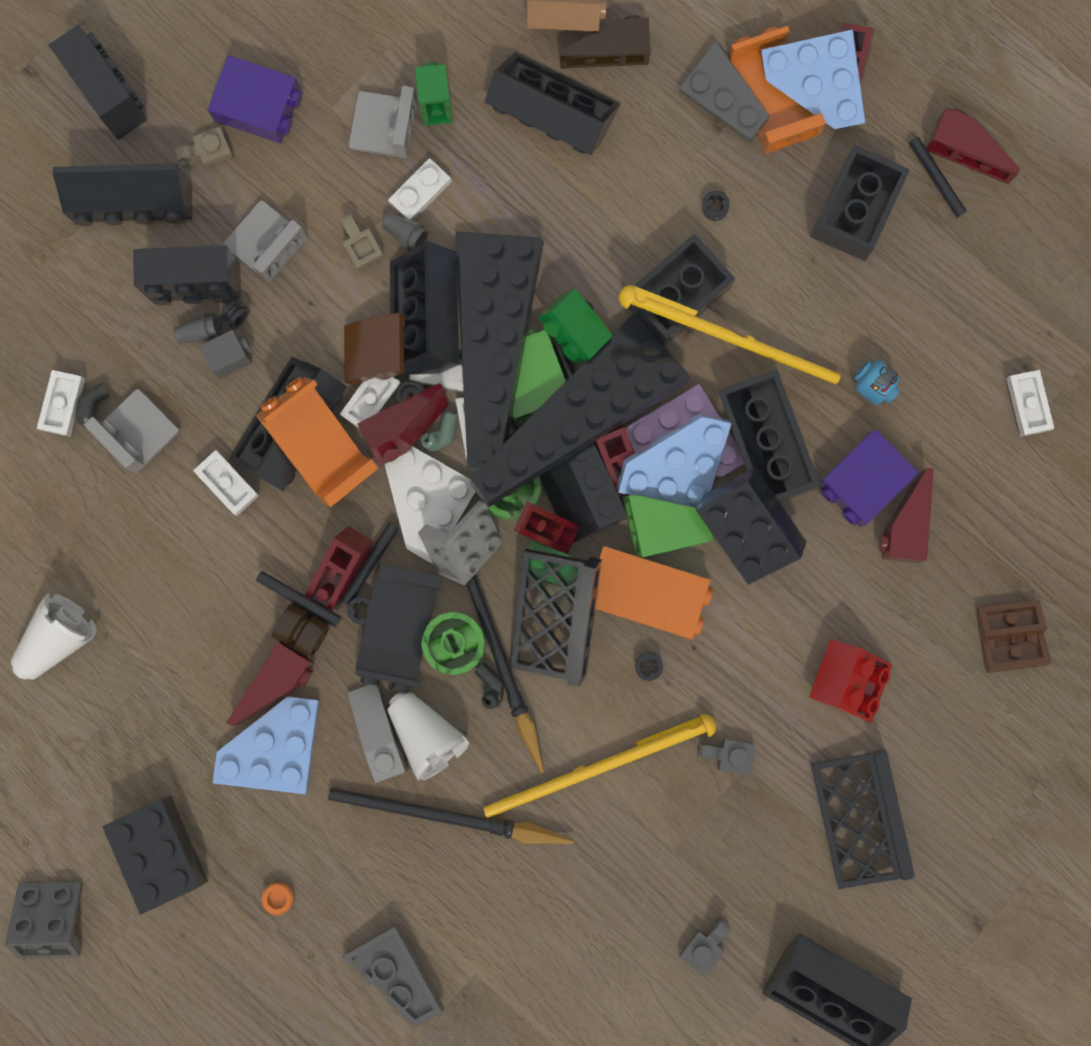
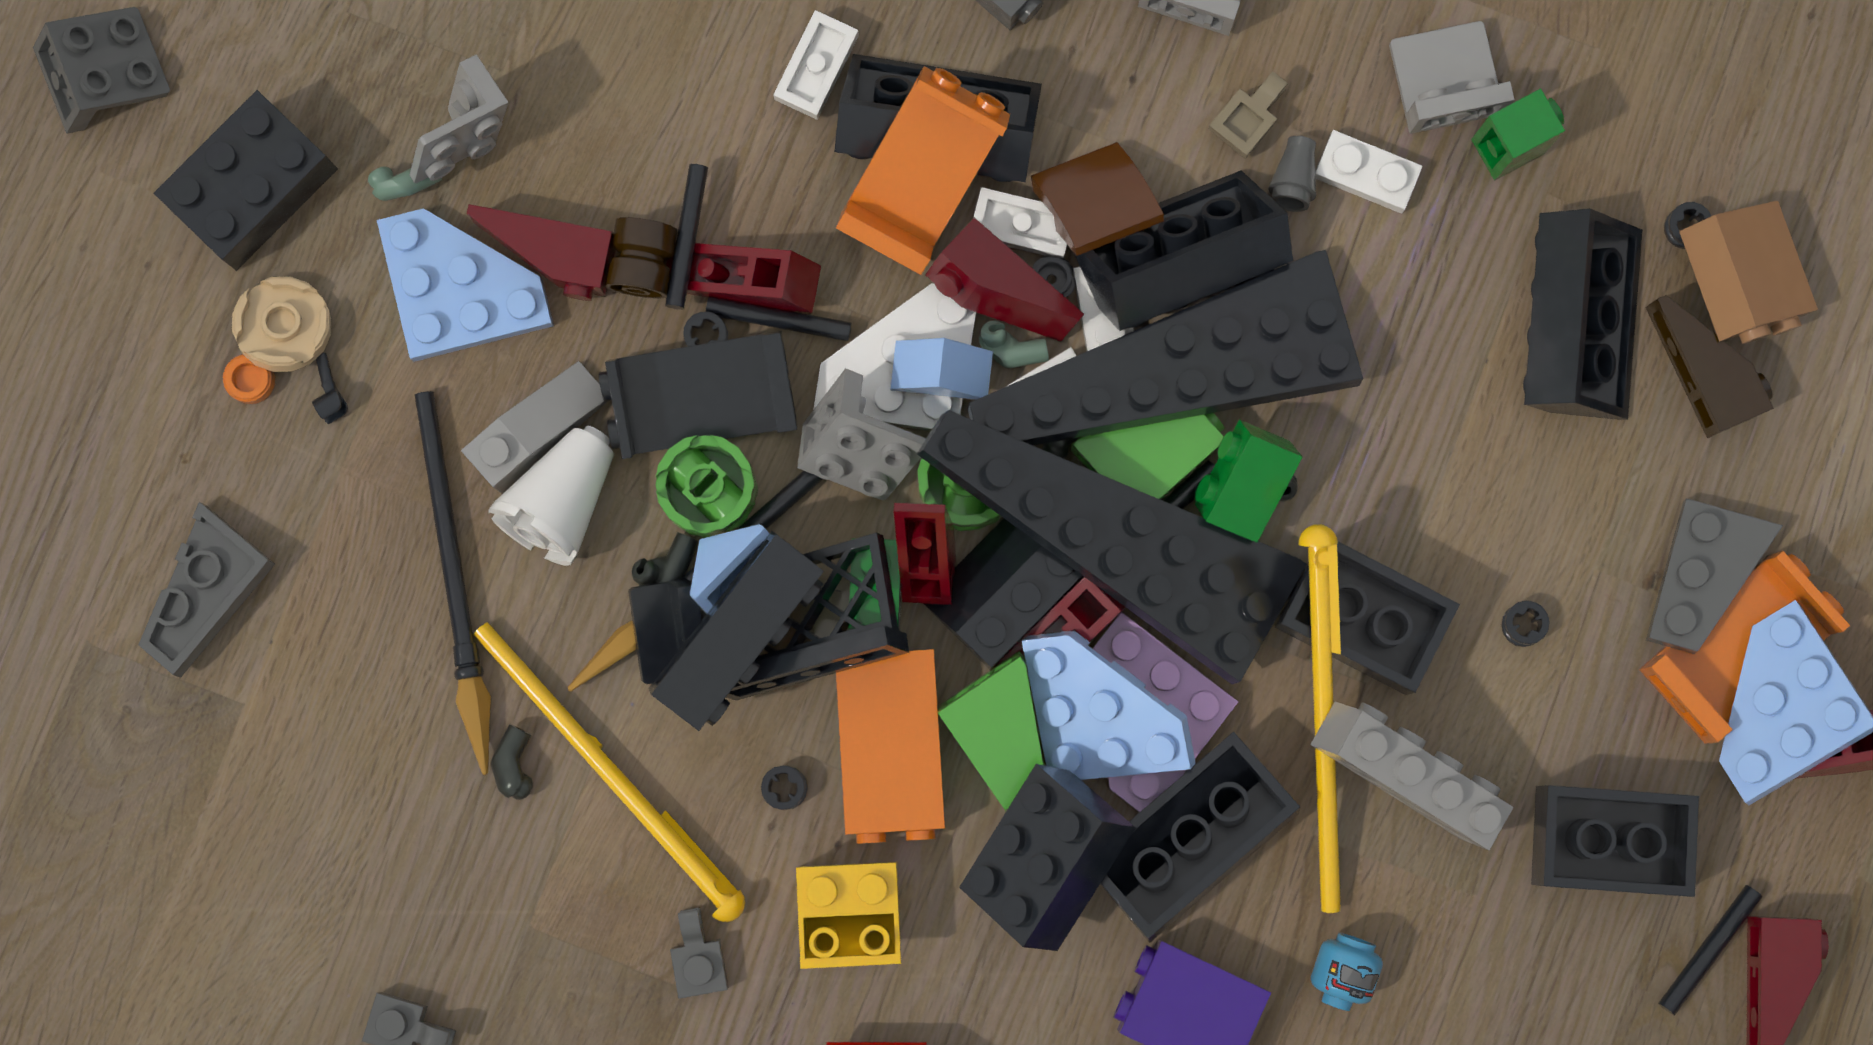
camera: 70 degrees right, 0 degrees up
(172, 696) = (476, 117): none -> light grey bracket
(197, 757) = (391, 187): none -> sand green arm
(252, 865) = (281, 324): none -> tan tile
(313, 852) = (331, 404): none -> black hand
(438, 478) = (941, 368): none -> light blue slope
(510, 645) = (720, 561): none -> light blue slope
(520, 35) = (1671, 230): none -> black bush
(532, 698) = (661, 623): none -> black panel
(550, 656) = (736, 631): none -> black brick
(574, 827) = (506, 764): none -> pearl dark grey arm
(739, 655) = (848, 915): none -> yellow slope
(781, 299) = (1411, 774): none -> light grey brick

